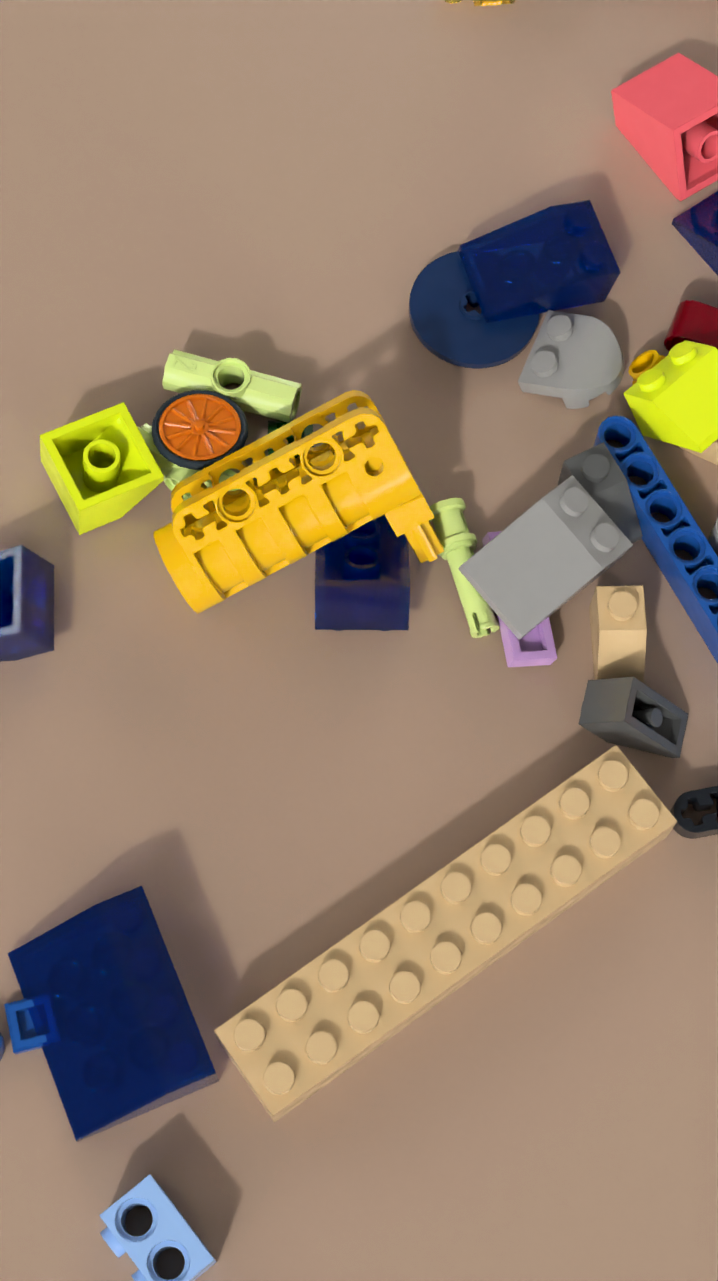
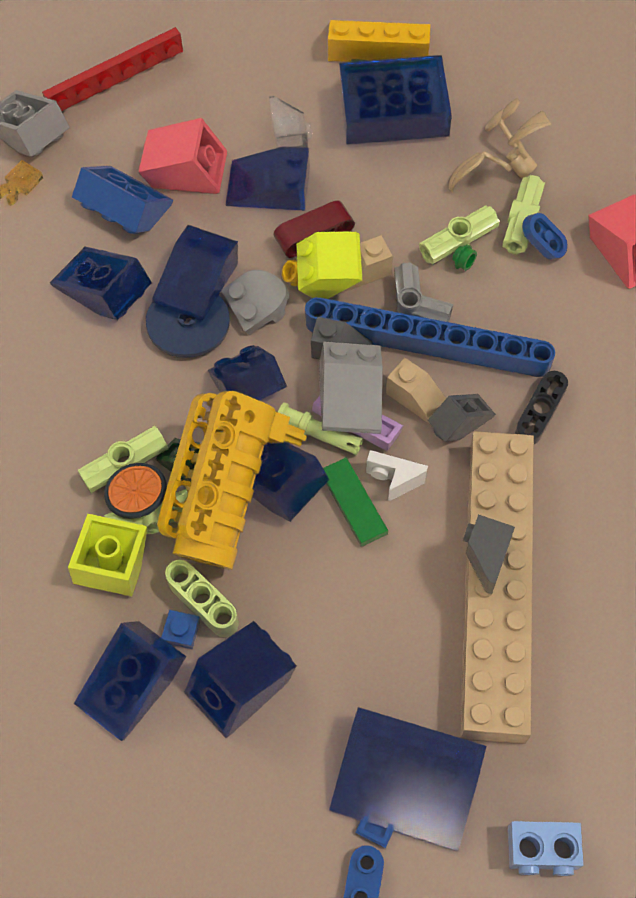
camera: 45 degrees left, 5 degrees down
(78, 727) = (239, 677): none -> clear blue slope
(85, 619) = (181, 629): none -> blue plate
(131, 590) = (197, 585): none -> yellowish green beam
(408, 682) = (354, 502): none -> green tile
(435, 177) = (103, 281): none -> clear blue slope
(456, 432) = (249, 373): none -> clear blue slope
(461, 880) = (487, 548): none -> dark grey slope
(491, 709) = (403, 473): none -> white slope
(563, 102) = (120, 198): none -> blue slope

